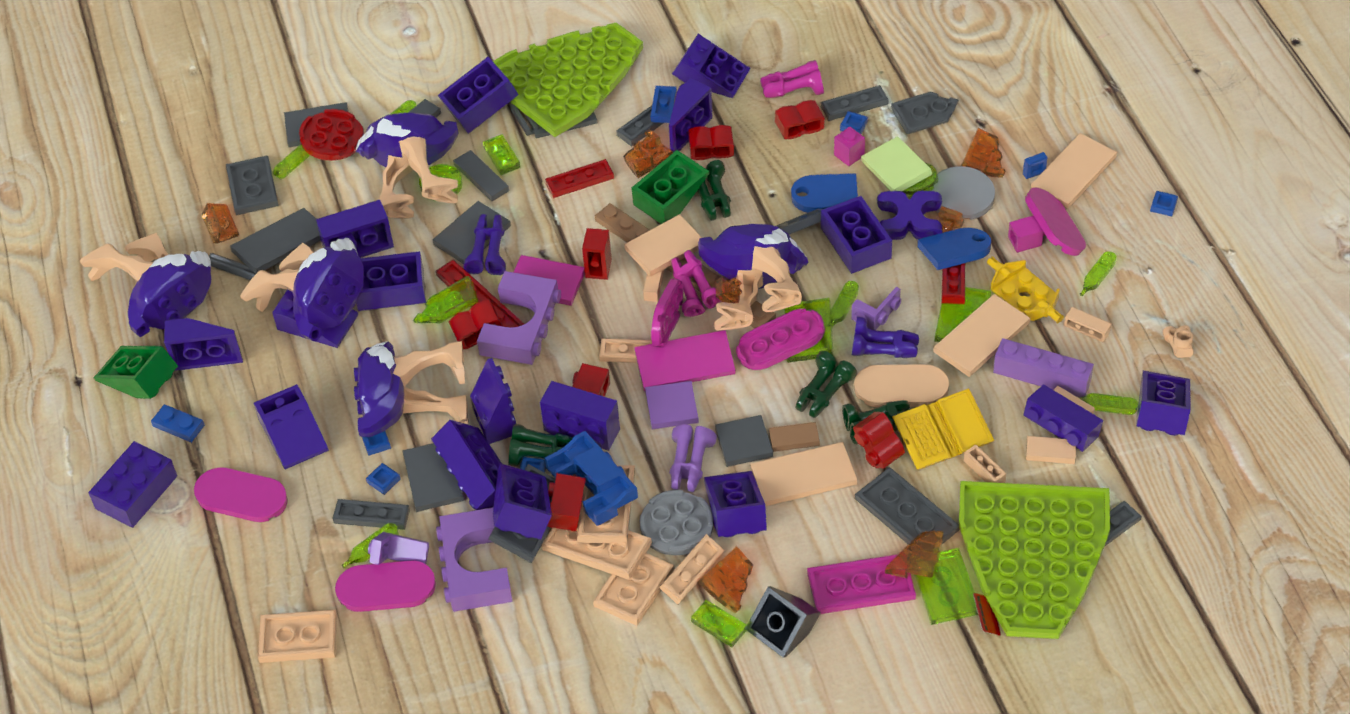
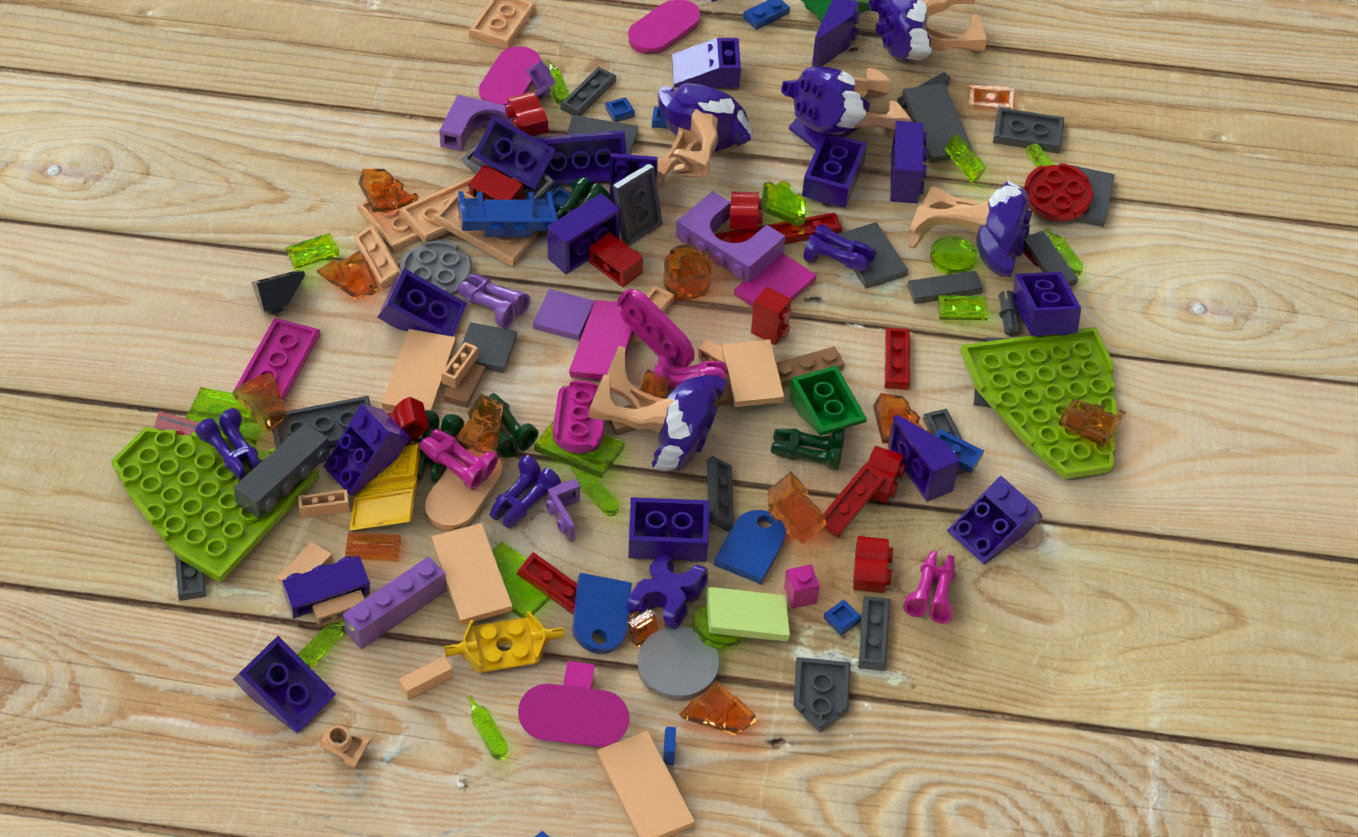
camera: 110 degrees right, 0 degrees up
(323, 202) = (965, 158): none -> clear neon green plate
(457, 515) = (527, 114): none -> red brick
(490, 126) = (1008, 313): none -> dark grey axle
(525, 378) = (638, 204): none -> dark grey tile
(577, 331) = (687, 272): none -> clear orange brick
(584, 40) = (1091, 421): none -> clear orange slope
(612, 600) = (384, 191): none -> clear orange slope
(751, 145) = (853, 499): none -> red tile
(784, 169) = (790, 504): none -> clear orange brick
(784, 438) = (459, 365): none -> light nougat piece
(842, 385) = (483, 425): none -> clear orange slope
(879, 367) = (441, 447): none -> dark pink piece
(922, 450) = (365, 448): none -> dark purple slope
(985, 493) = (282, 470): none -> dark grey brick
(988, 528) = (229, 425): none -> dark purple piece
(1015, 427) = (372, 550): none -> clear orange tile

